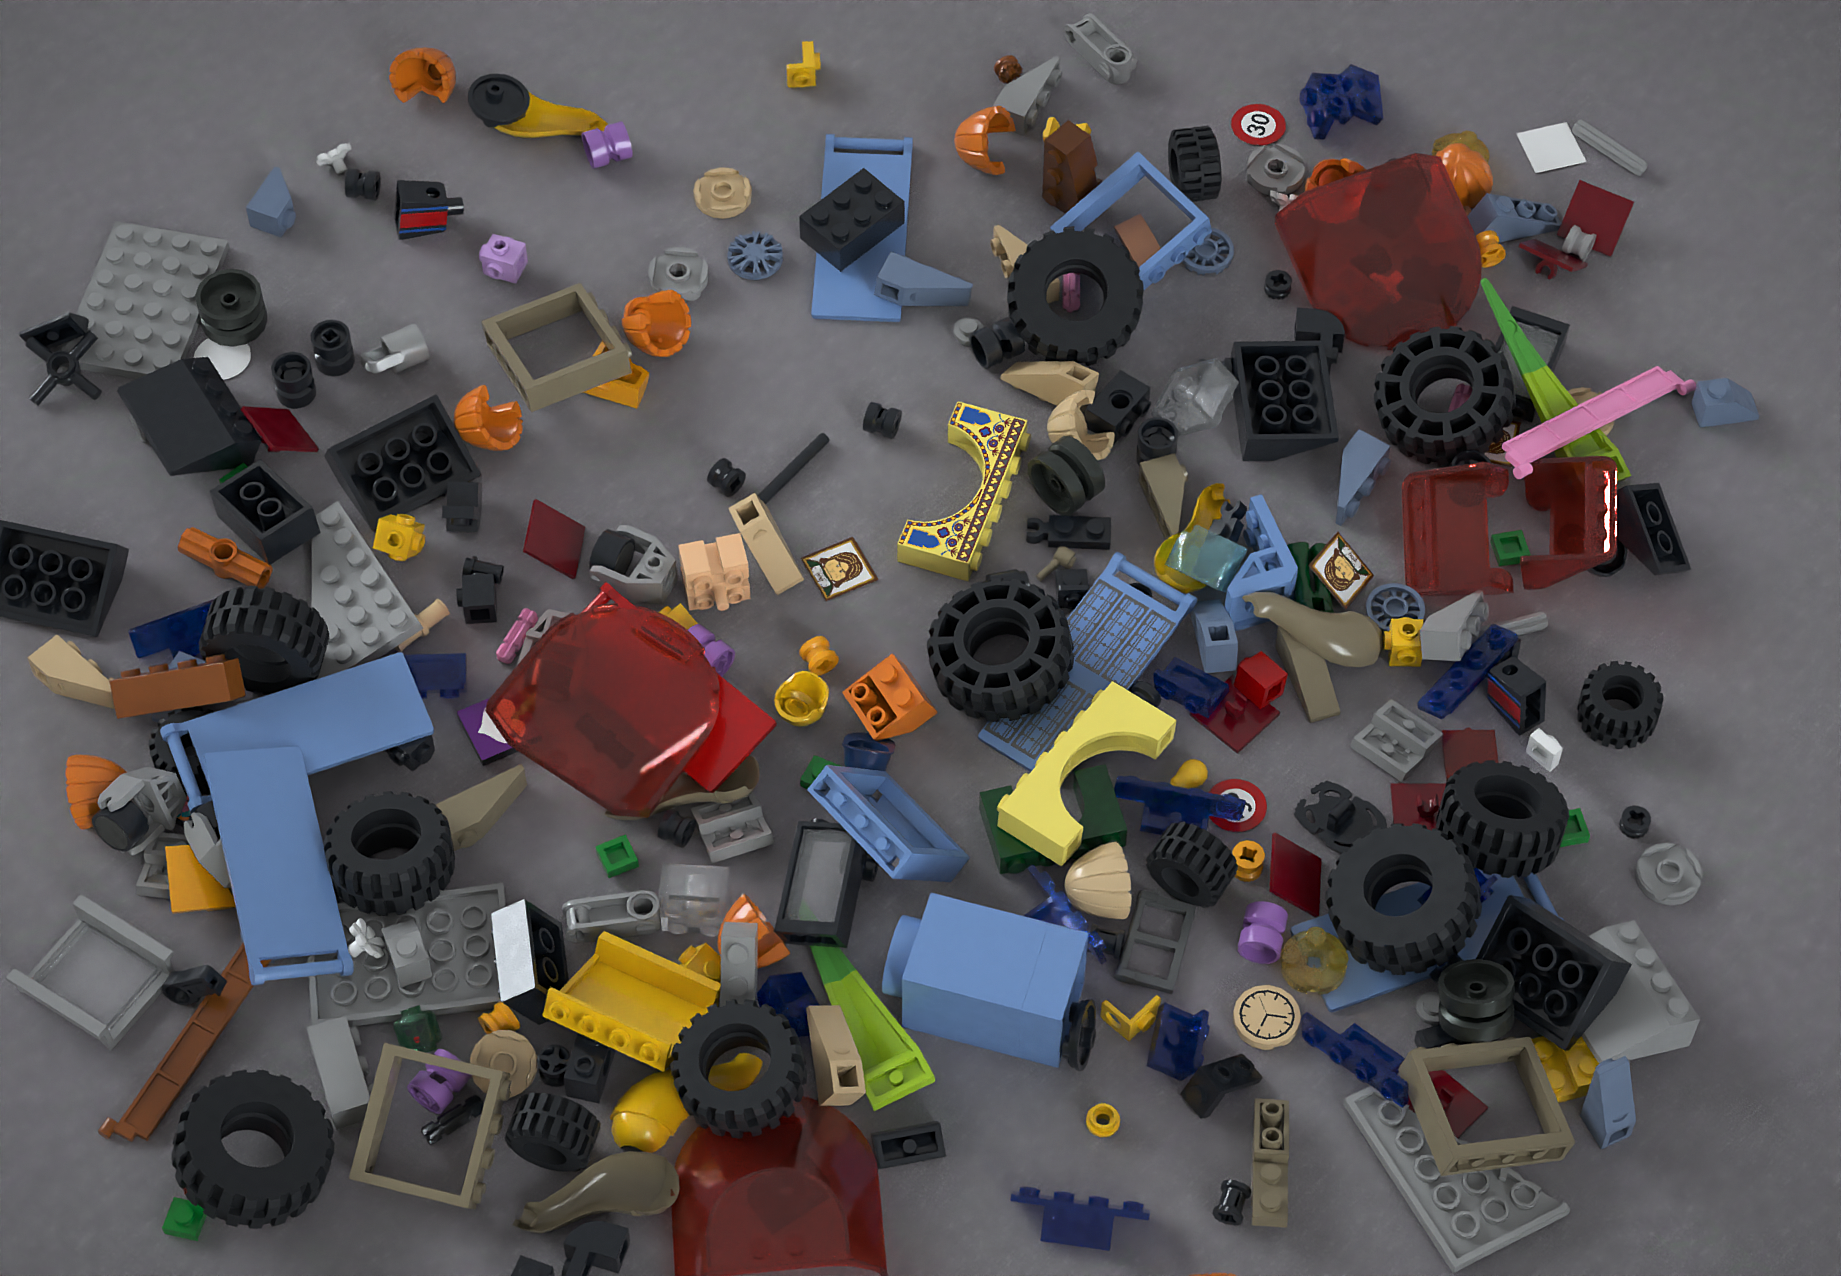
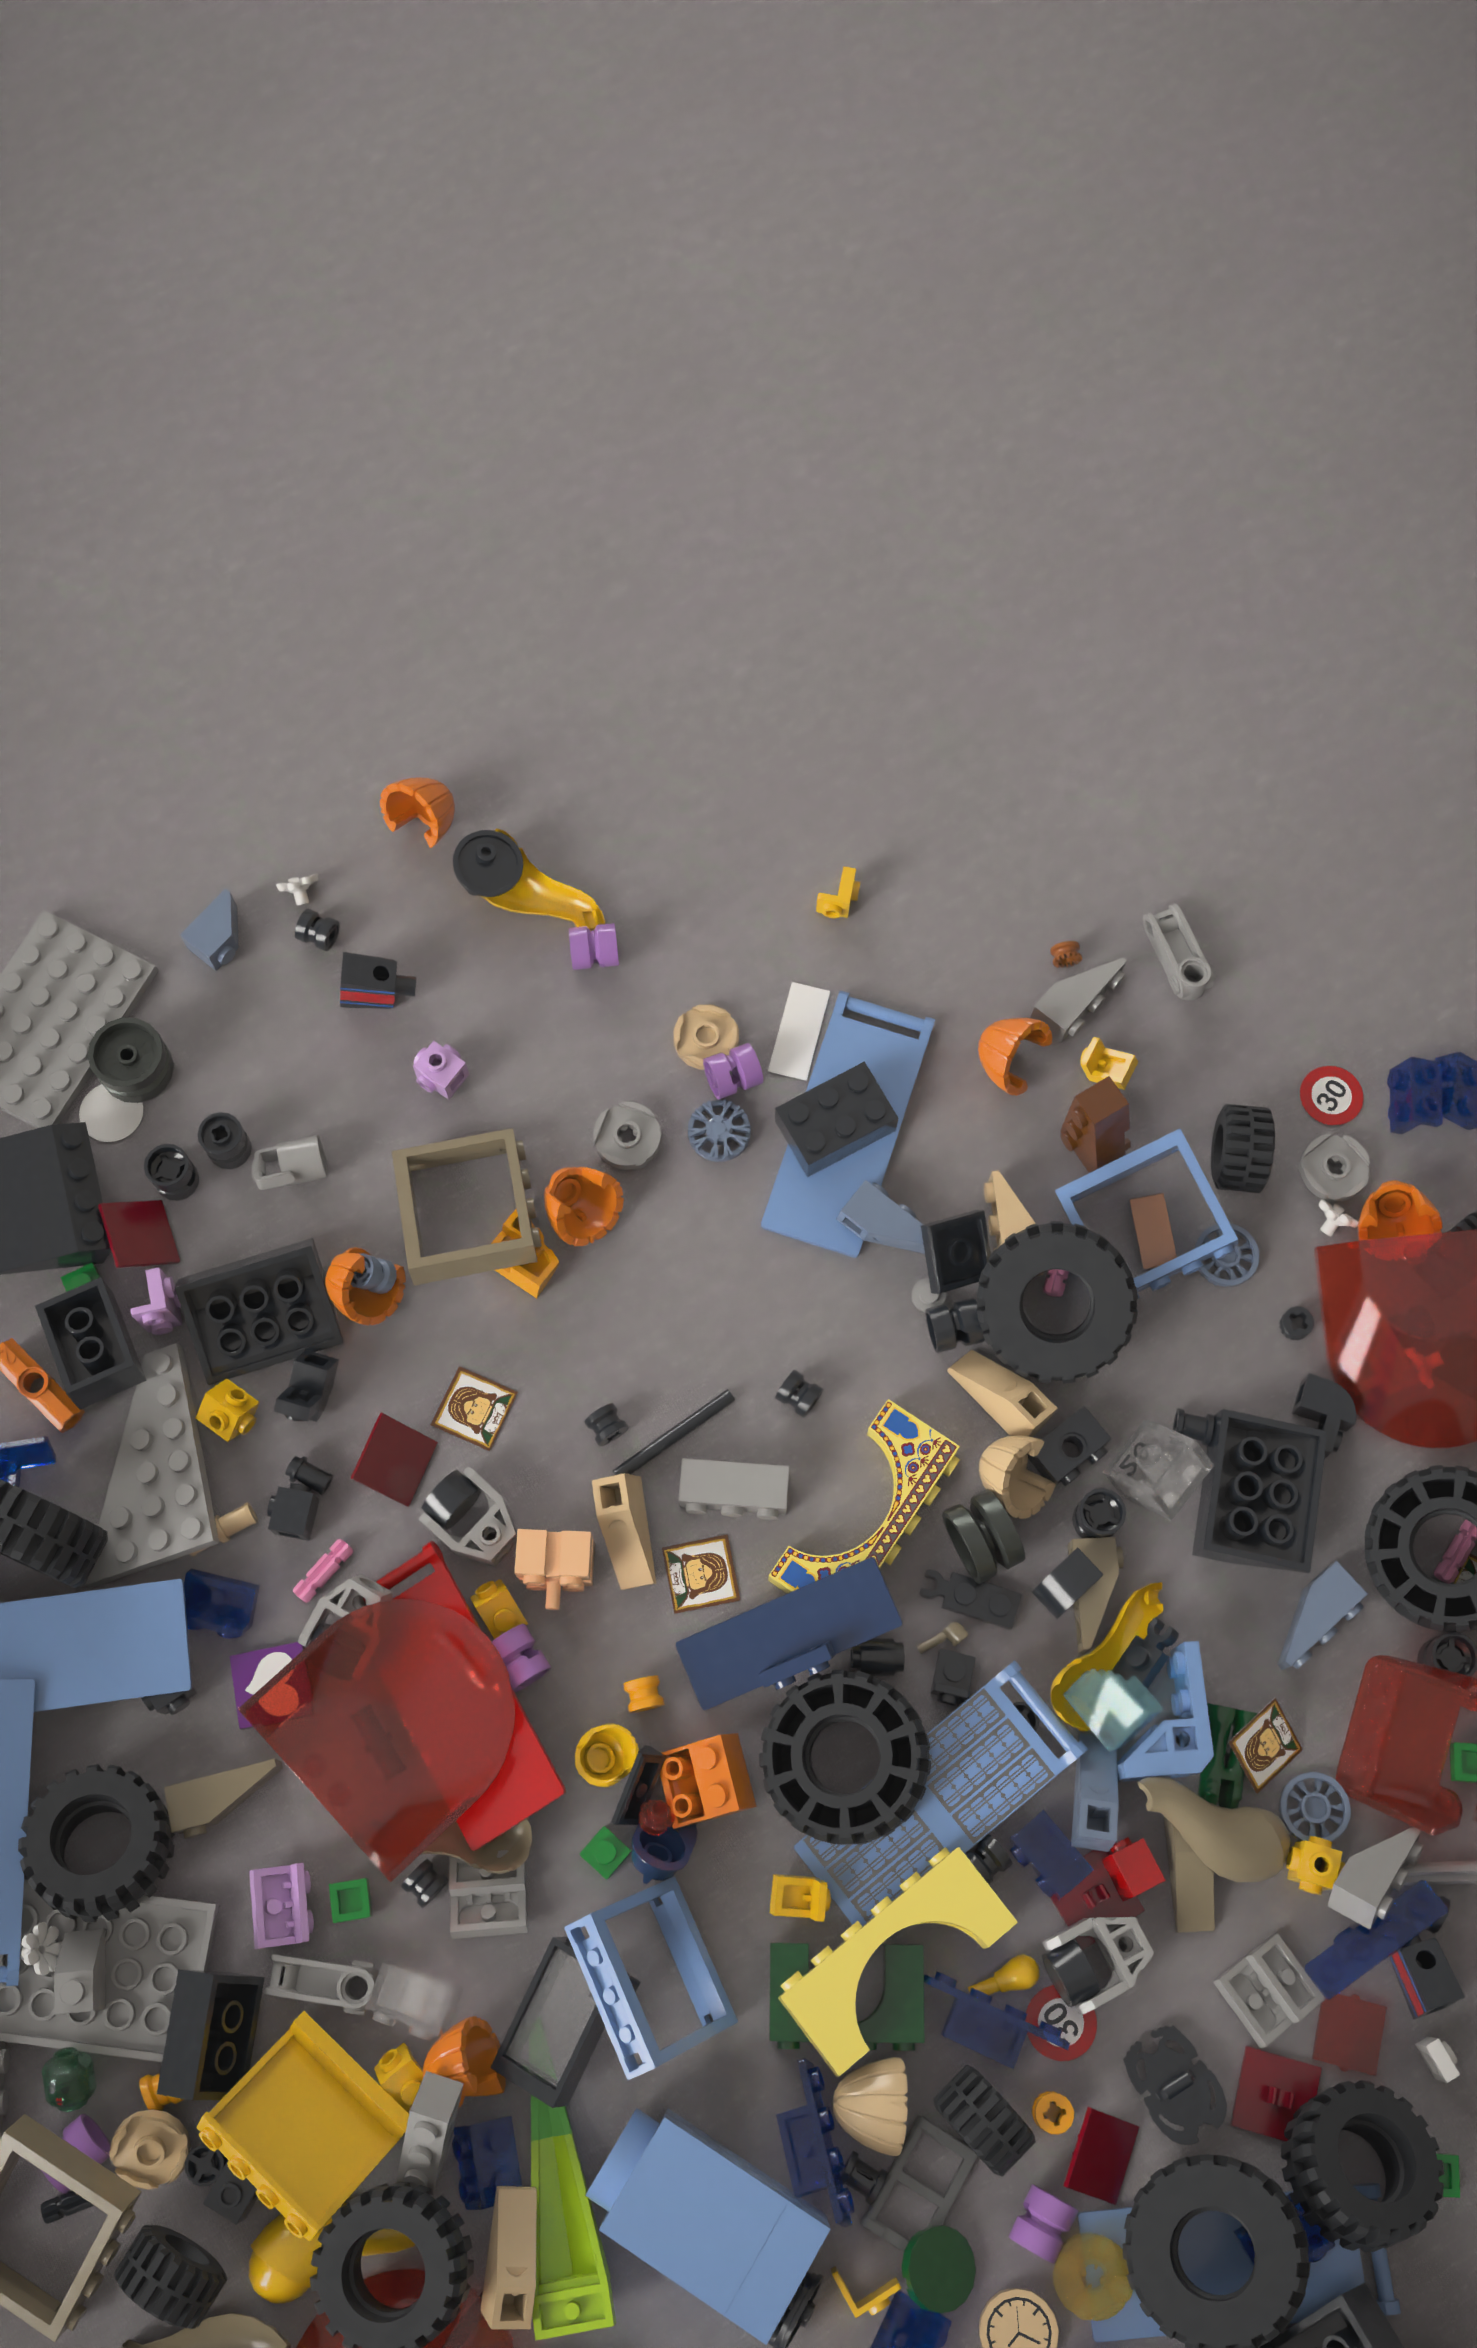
camera: 15 degrees right, 15 degrees up
(316, 472) = (164, 1308): none -> lavender bracket
(497, 410) = (377, 1277): none -> sand blue wheel
(559, 871) = (280, 1905): none -> lavender bracket
(608, 497) = (474, 1408): none -> sticker
(754, 206) = (744, 1067): none -> medium lavender wheel
(800, 173) = (799, 1031): none -> white sticker
(835, 714) = (638, 1786): none -> black slope
(848, 496) = (733, 1488): none -> light grey brick
(856, 731) = (655, 1817): none -> clear red plate
(926, 579) = (789, 1634): none -> dark blue bracket
(981, 287) = (956, 1250): none -> black tile
(994, 764) = (799, 1897): none -> yellow bracket
(1143, 490) = (1067, 1583): none -> black brick
(1187, 983) = (939, 2268): none -> dark green tile
(1231, 743) = (1073, 1973): none -> light grey piece

